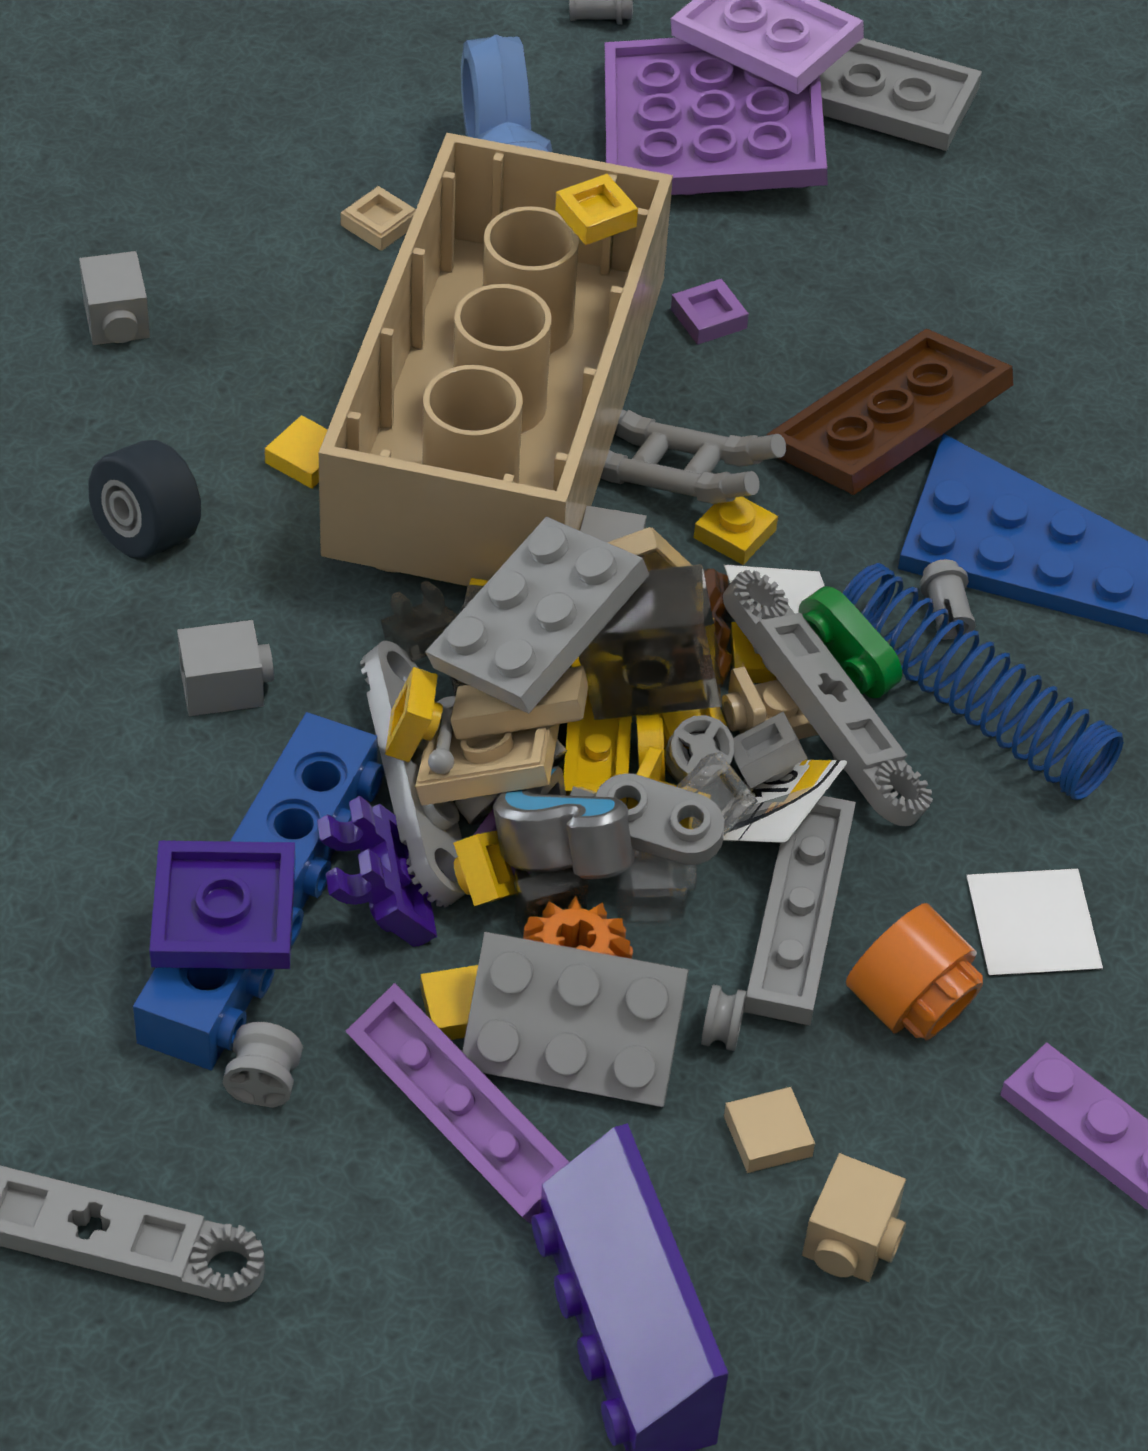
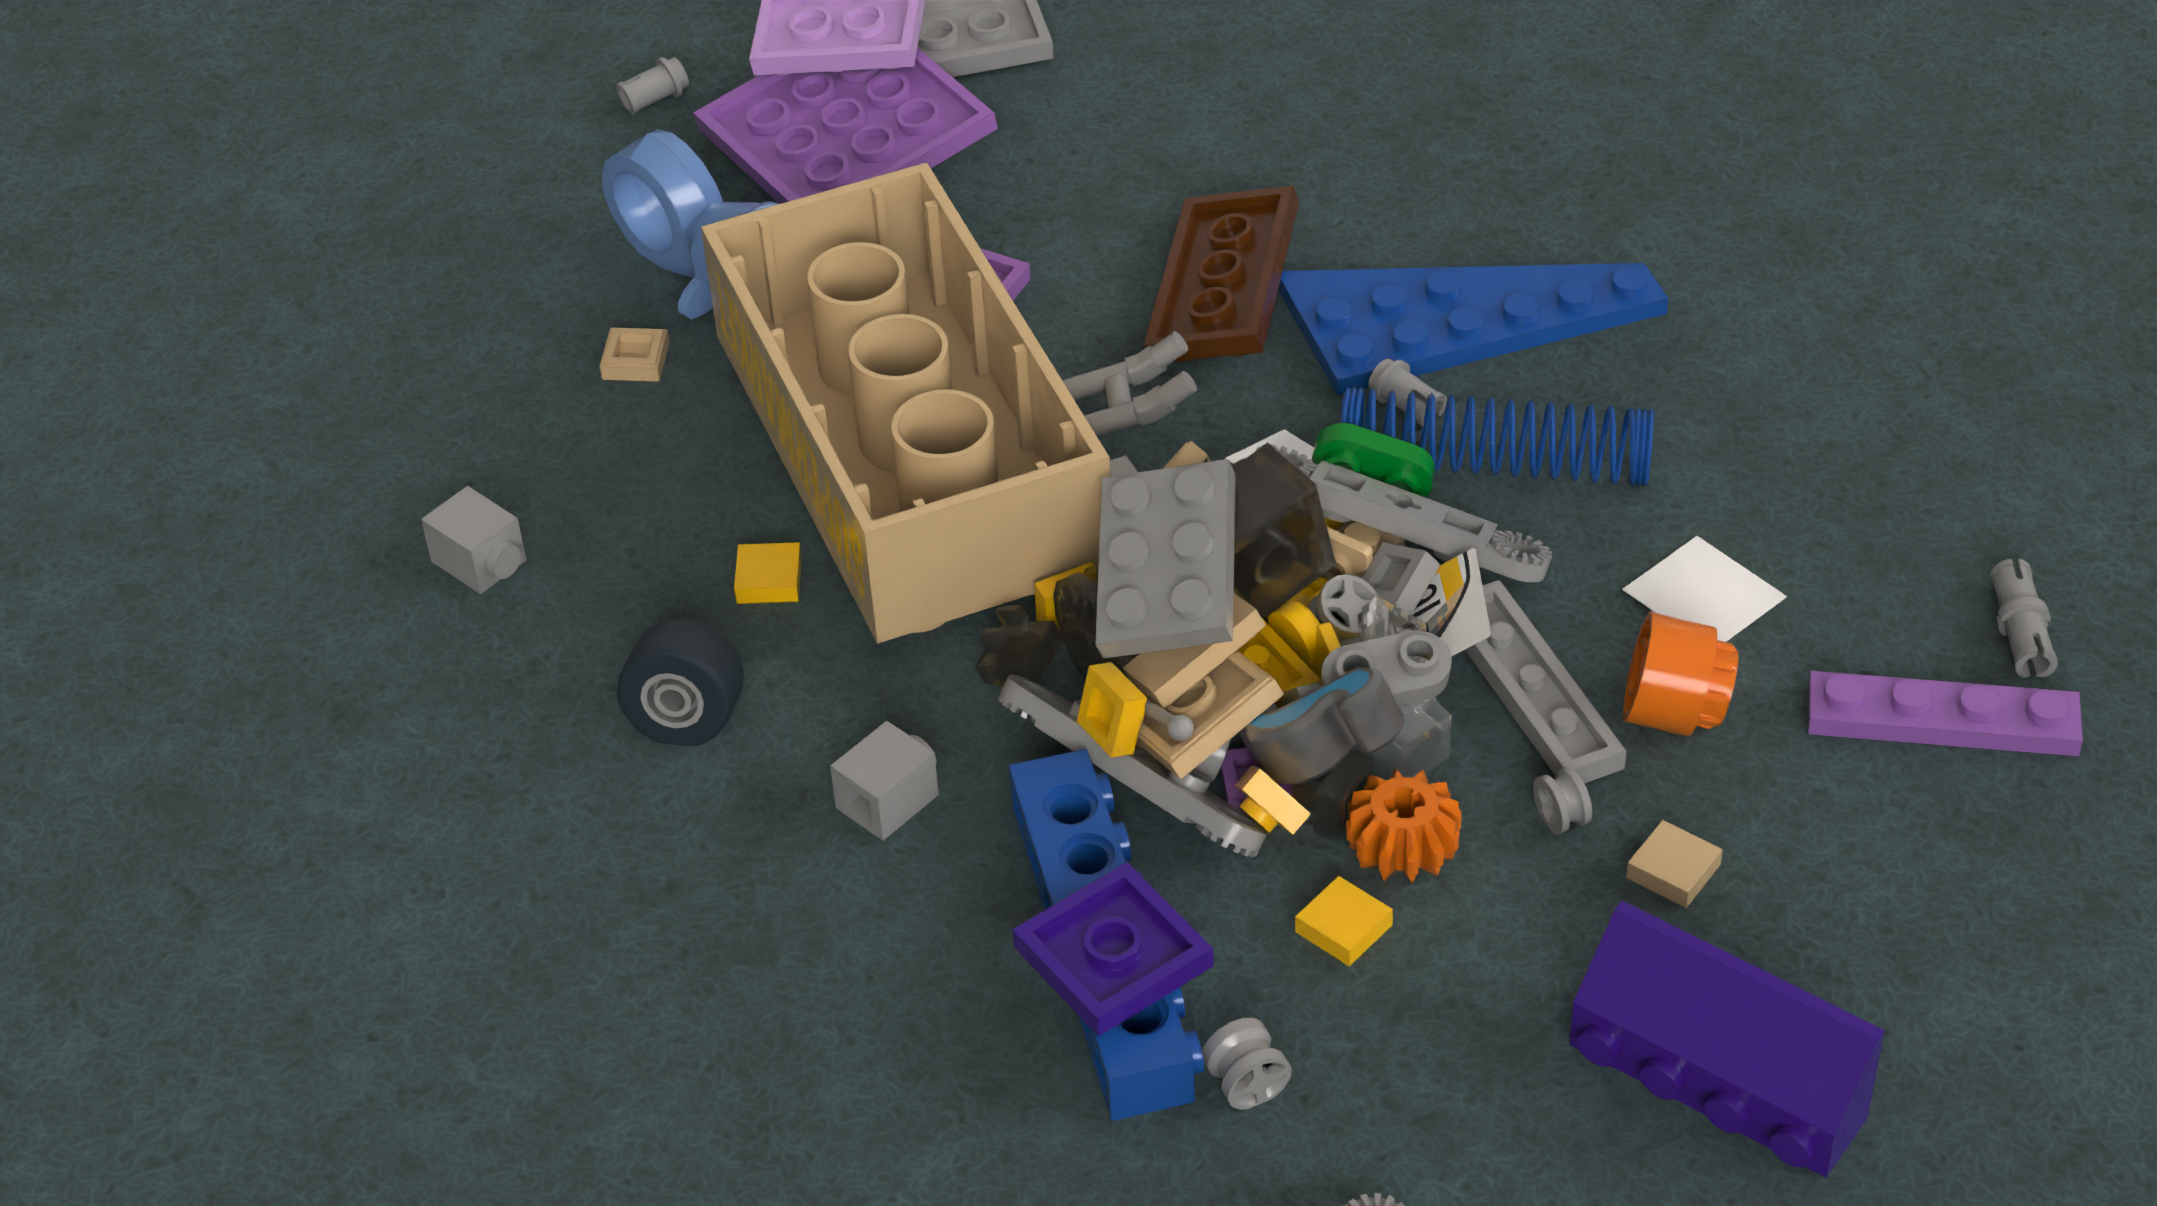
camera: 30 degrees left, 5 degrees down
(384, 873) = (1207, 862): dark purple plate -> none
(458, 1099) = (1431, 989): medium lavender plate -> none
(575, 1018) = (1460, 868): light grey plate -> none
(596, 209) = (904, 216): yellow plate -> none
(736, 528) = (1184, 425): yellow plate -> none
(855, 1220) = (1811, 882): tan brick -> none

